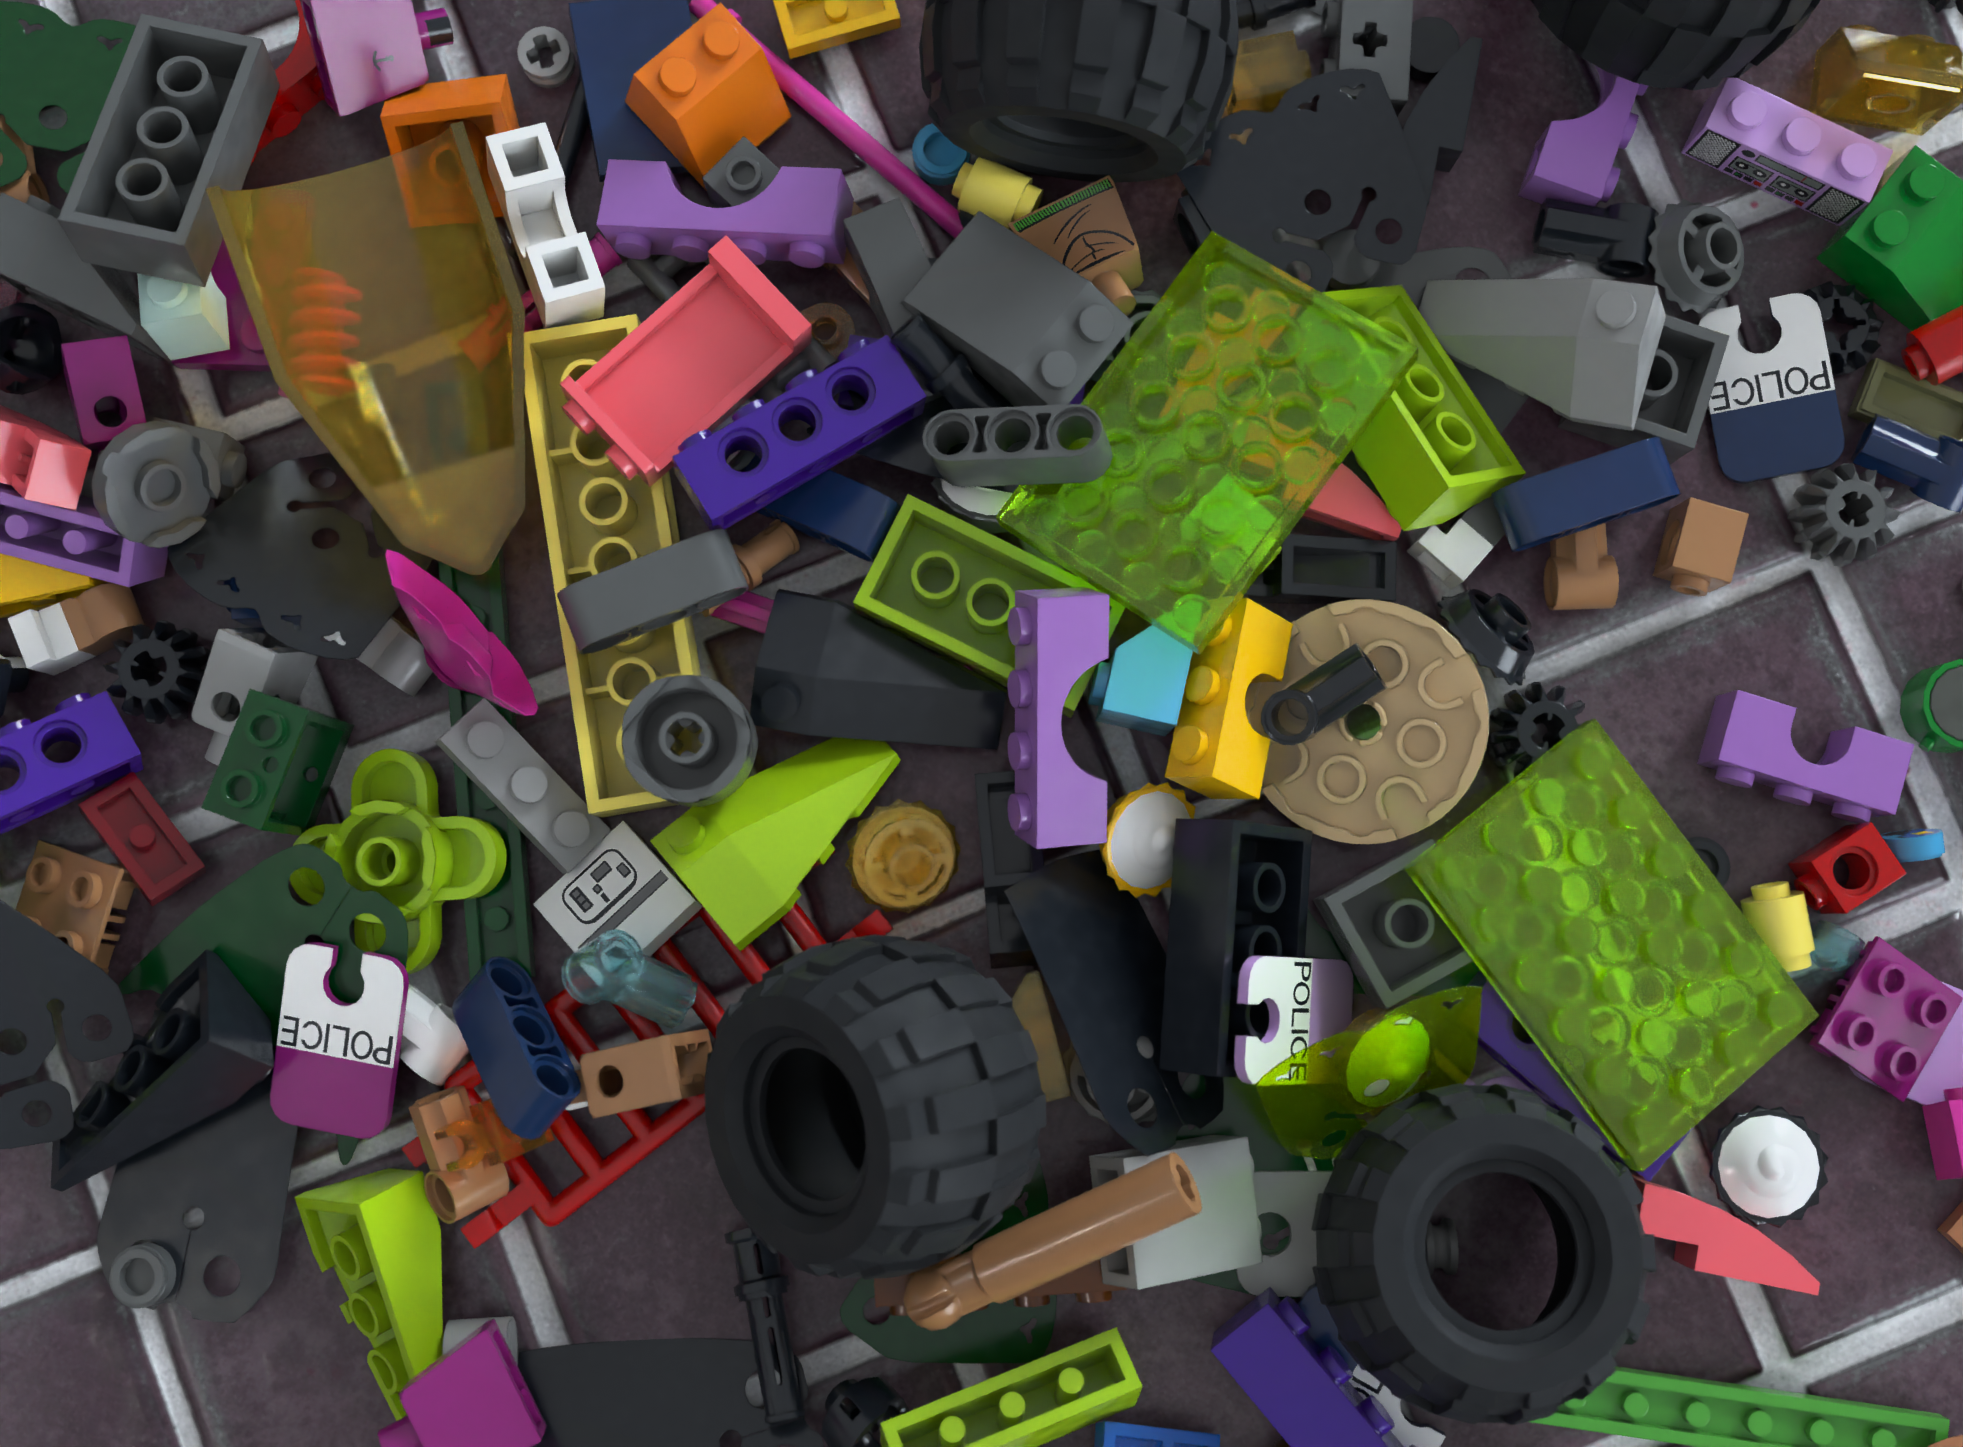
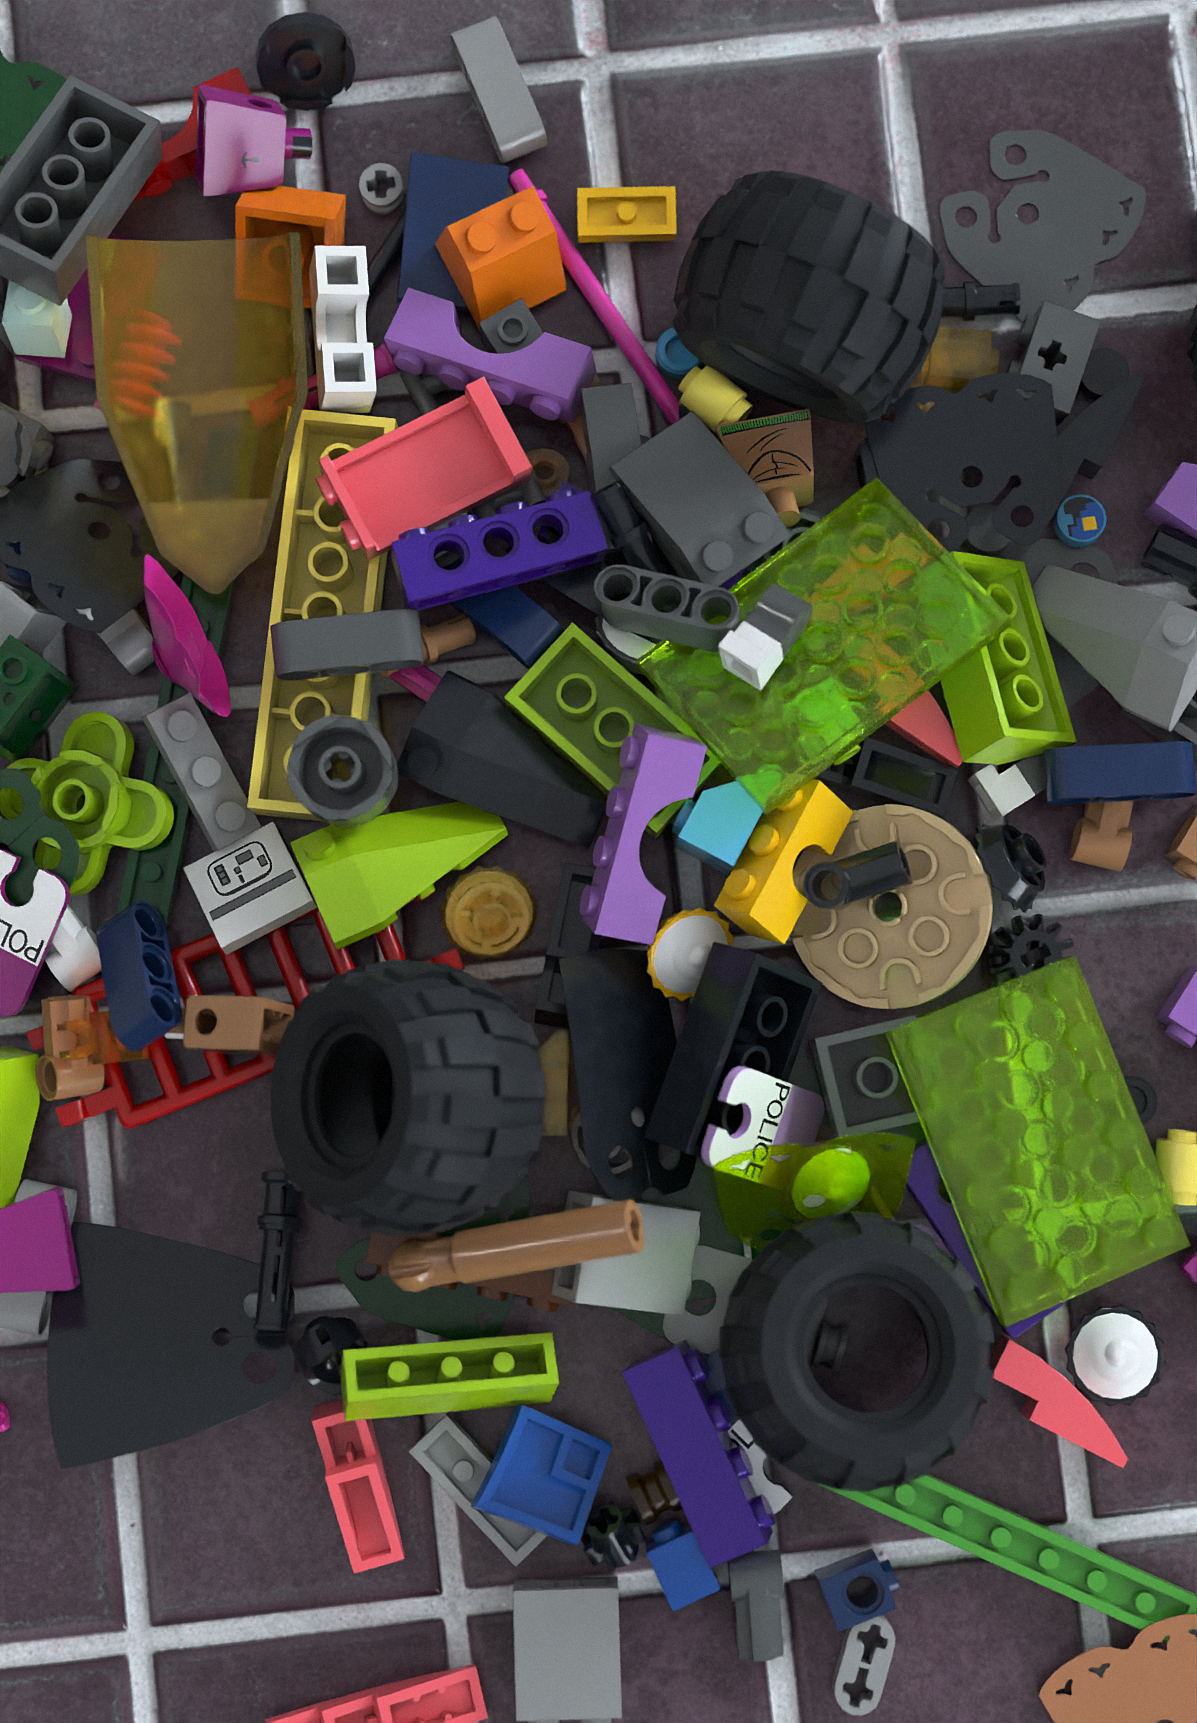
camera: 20 degrees right, 0 degrees up
(620, 973) = (236, 938): clear light blue piece -> none
(1139, 447) = (765, 636): none -> leg
(1451, 221) = (1079, 520): none -> tile

